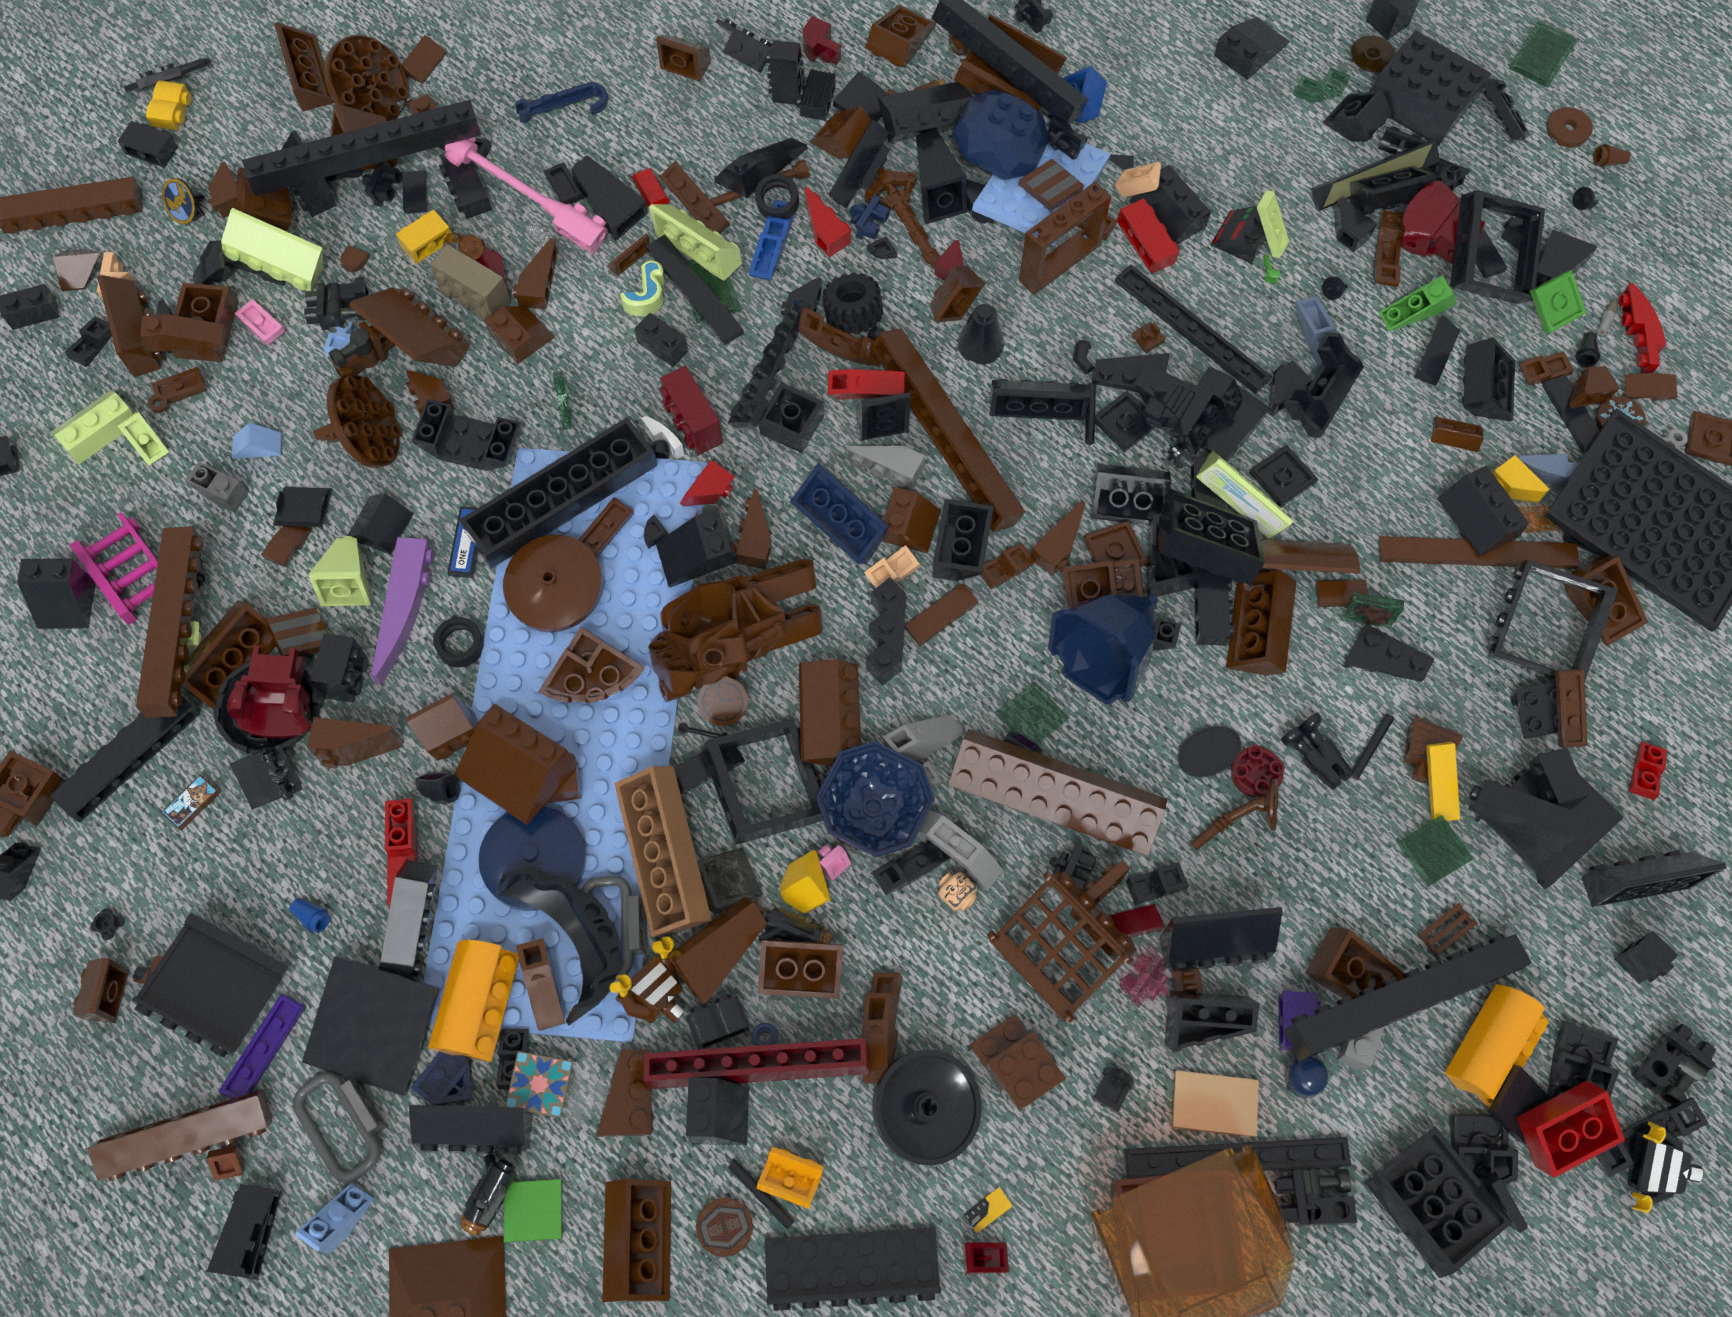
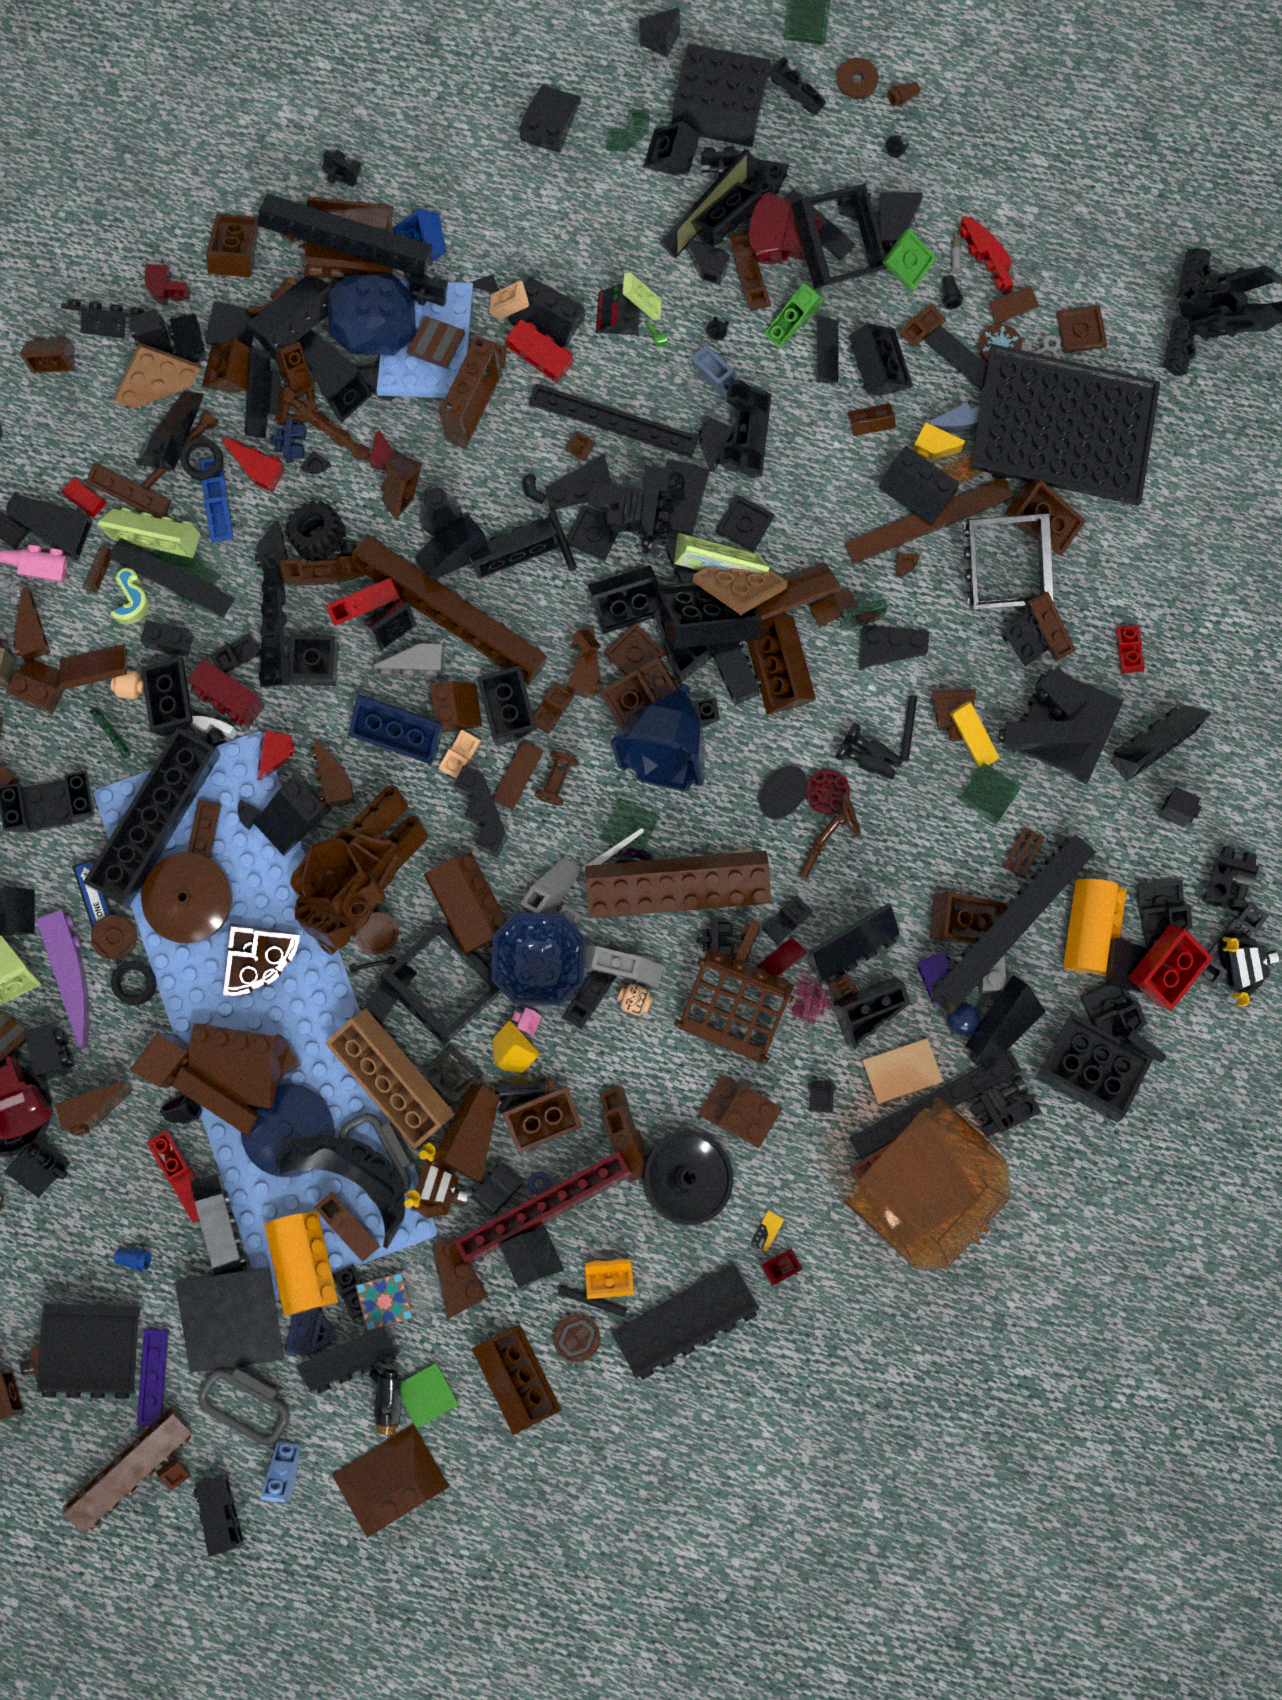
camera: 20 degrees left, 10 degrees up
(463, 590) = (113, 937): none -> reddish brown tile
(475, 791) = (215, 1100): none -> reddish brown tile
(578, 334) = (93, 666): none -> reddish brown tile
(602, 364) = (128, 686): none -> light nougat head
(632, 387) = (167, 696): none -> black slope
(720, 384) = (234, 655): none -> black slope
(770, 110) = (154, 376): none -> medium nougat plate
(904, 150) = (293, 366): none -> reddish brown slope
(978, 372) = (451, 548): none -> black slope
(979, 633) = (556, 778): none -> reddish brown hose
(1005, 730) = (605, 856): none -> white sticker
(1071, 512) = (585, 641): none -> reddish brown tile
(1253, 525) = (739, 587): none -> medium nougat plate
(1354, 1102) = (1004, 1023): none -> black slope
(1372, 53) = (659, 72): dark brown dish -> none
(1436, 583) = (905, 563): none -> reddish brown tile
(1593, 387) = (966, 328): reddish brown slope -> none

